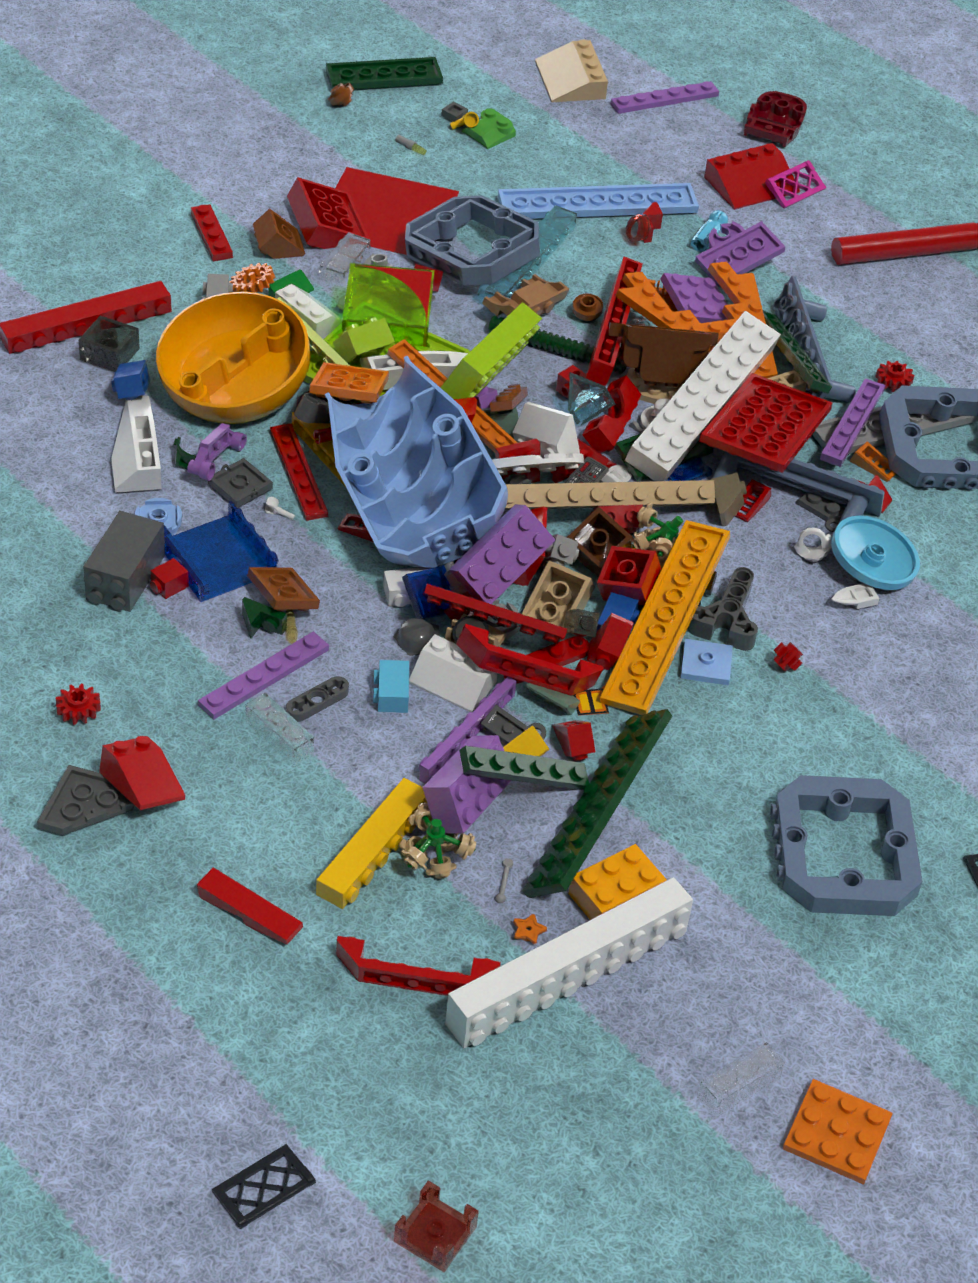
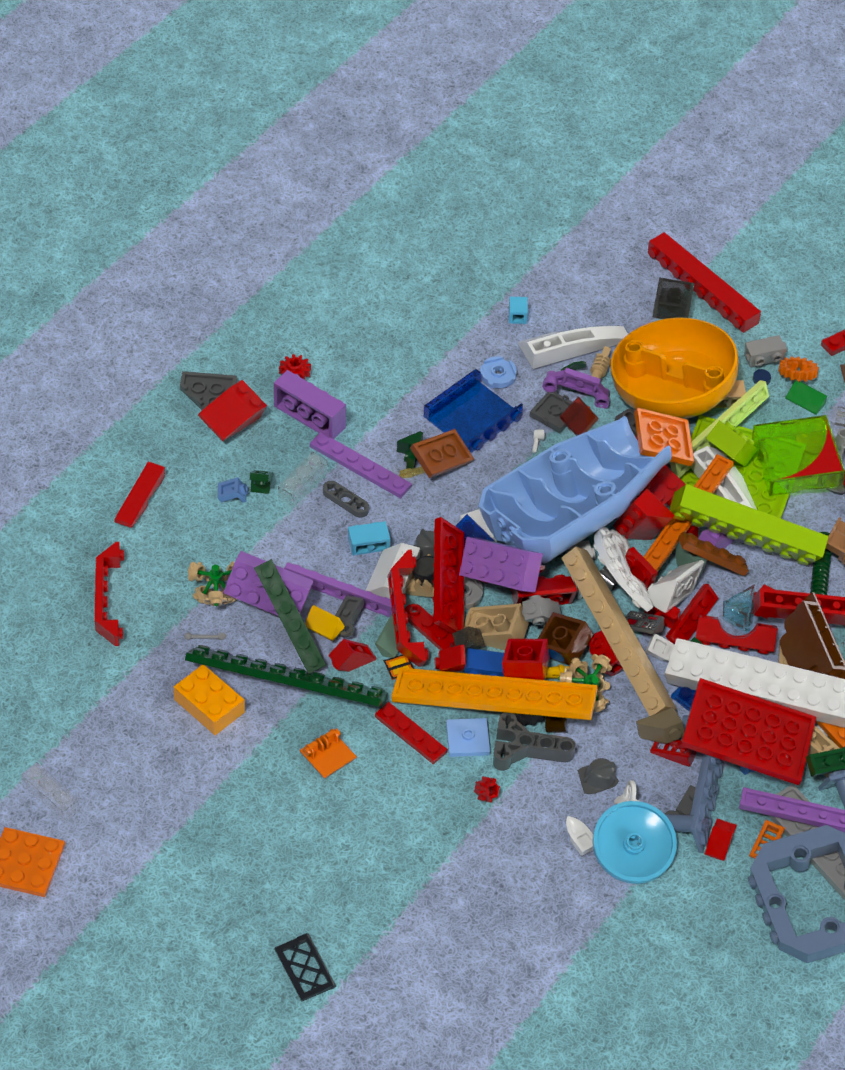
camera: 80 degrees right, 5 degrees up
(63, 476) = (518, 310): none -> medium azure brick
(123, 561) = (432, 357): dark grey brick -> none
(131, 380) = (631, 318): blue brick -> none
(160, 694) = (309, 404): none -> medium lavender brick
(169, 578) = (431, 388): red brick -> none
(180, 428) = (601, 363): none -> tan hinge
(259, 464) = (578, 417): none -> clear red piece
(263, 772) = (260, 481): none -> dark green slope
(271, 807) = (232, 489): none -> medium blue bracket
(313, 312) = (780, 405): white slope -> none
(370, 845) = (202, 547): yellow brick -> none
(528, 935) = (167, 655): orange plate -> none
(567, 963) = (128, 676): white brick -> none
(699, 707) = (411, 733): none -> red plate
(710, 790) = (328, 753): none -> orange hinge
(775, 567) = (598, 776): none -> dark grey piece
(850, 891) = (286, 887): sand blue panel -> none

